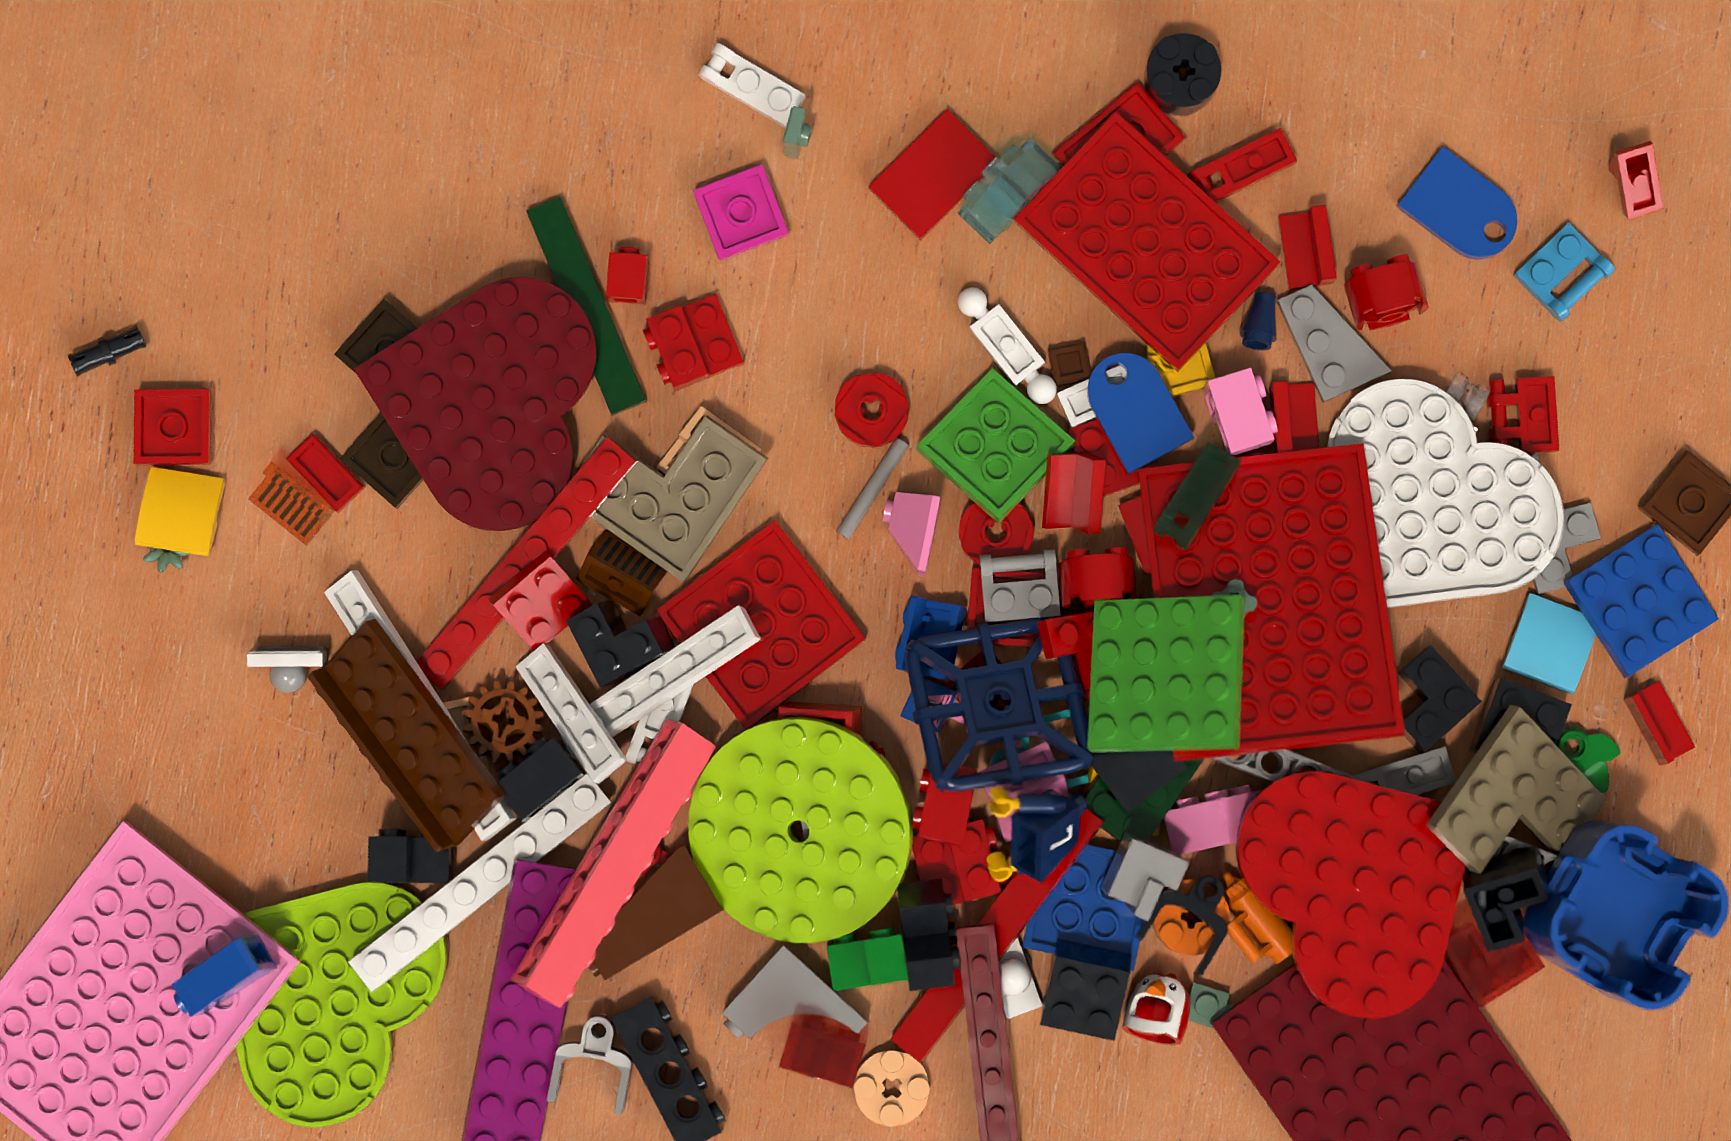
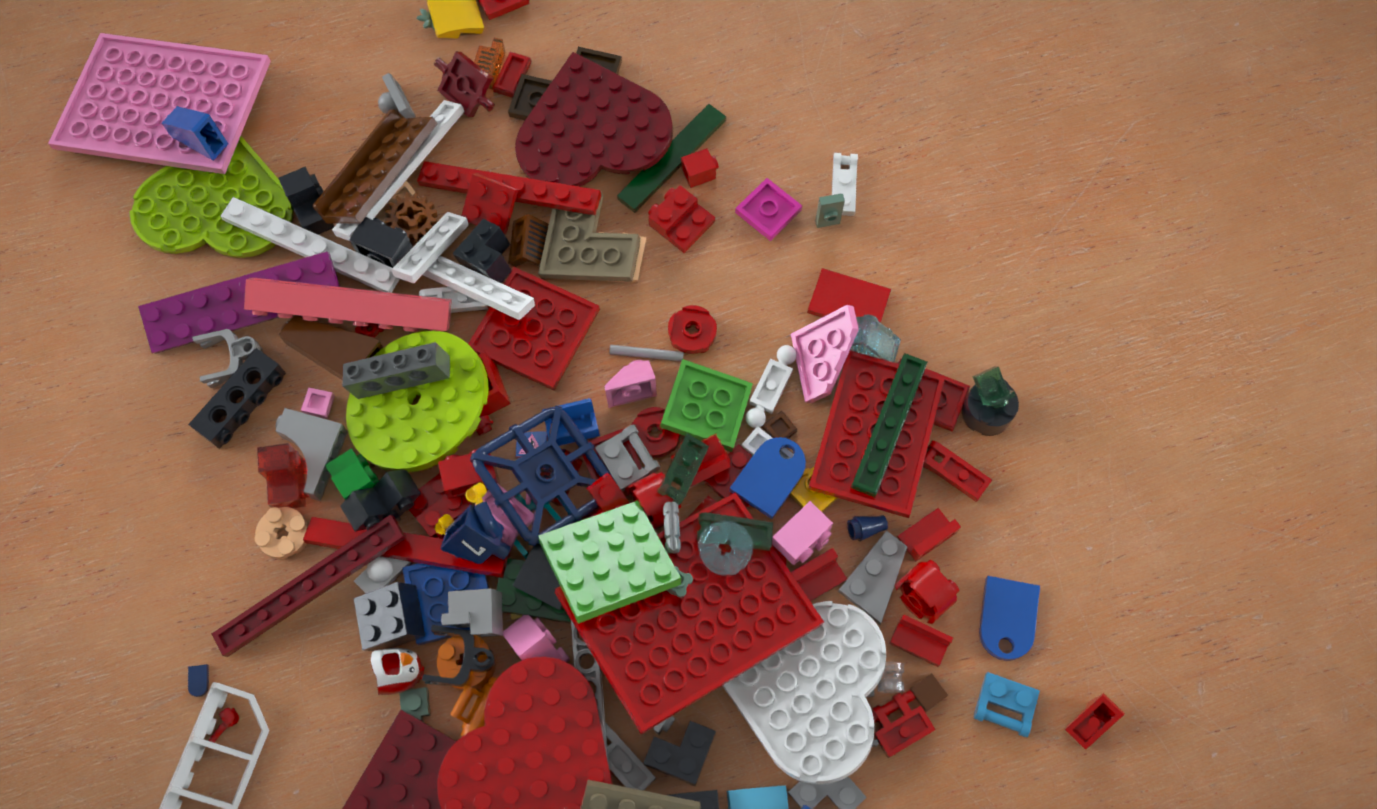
camera: 60 degrees right, 15 degrees down
(319, 550) = (464, 83): none -> dark red plate
(727, 967) = (318, 403): none -> bright pink plate
(754, 837) = (396, 370): none -> dark grey brick
(1000, 252) = (823, 350): none -> bright pink plate
(1081, 521) = (683, 468): none -> clear green plate
(1147, 221) = (889, 425): none -> dark green tile
(1156, 574) = (671, 527): none -> light grey axle
(1173, 63) = (993, 388): none -> clear green bracket
(1238, 519) = (740, 543): none -> clear light blue plate
(1437, 335) = (920, 640): none -> red panel
(1503, 359) = (928, 692): none -> reddish brown tile

